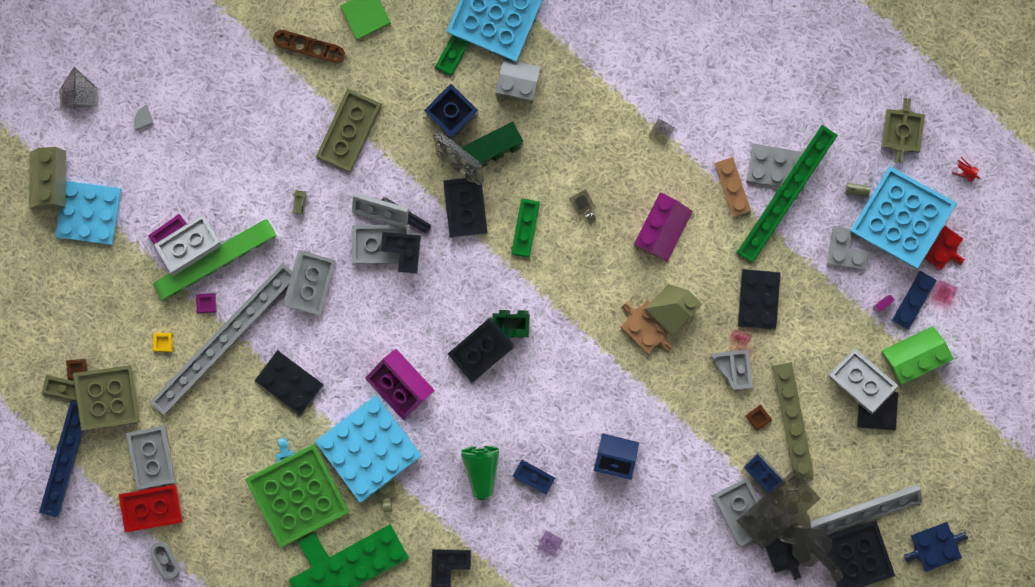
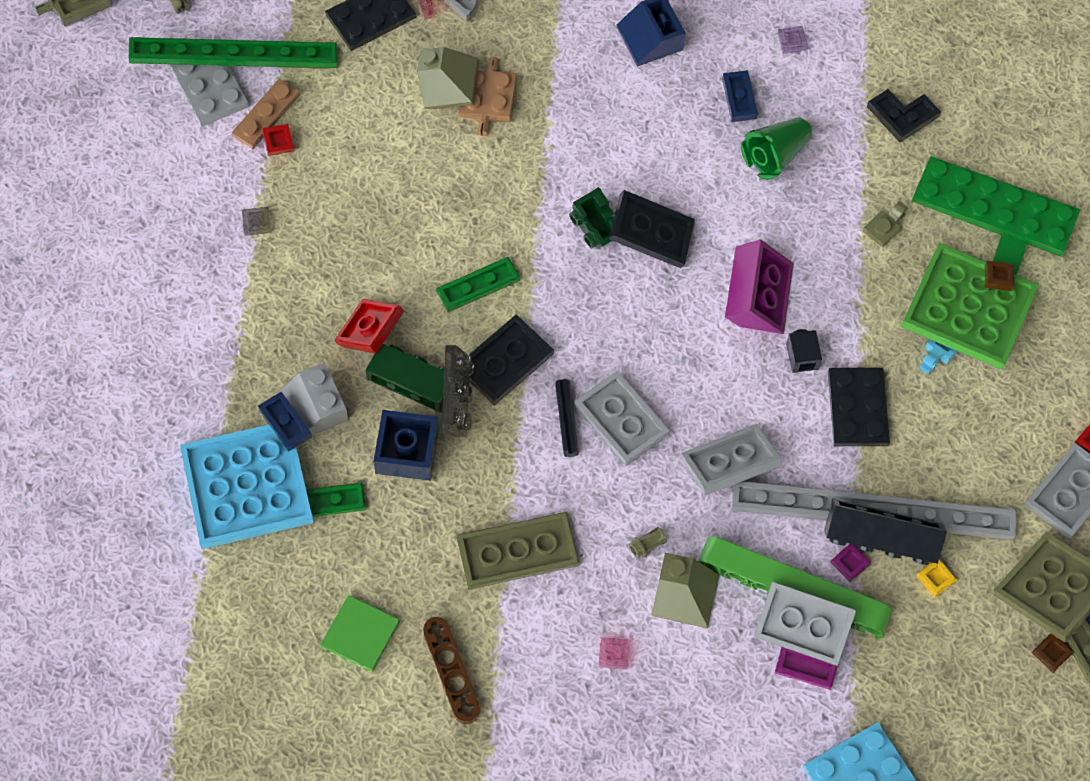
camera: 130 degrees left, 20 degrees down
(204, 331) = (885, 531): none -> black brick
(253, 137) = (613, 653): none -> clear pink tile
(256, 200) = (685, 591): none -> olive slope
(300, 526) = (999, 276): none -> reddish brown tile
(343, 377) = (803, 351): none -> black brick
(368, 449) = (856, 271): medium azure plate -> none
(380, 210) = (584, 442): light grey plate -> none
(408, 247) = (603, 381): black plate -> none
(514, 54) = (284, 421): none -> dark blue plate
(541, 144) = (369, 326): none -> red plate
(582, 204) = (405, 244): clear smoke plate -> none
(663, 227) = (366, 151): magenta slope -> none
(706, 179) = (277, 139): none -> red plate

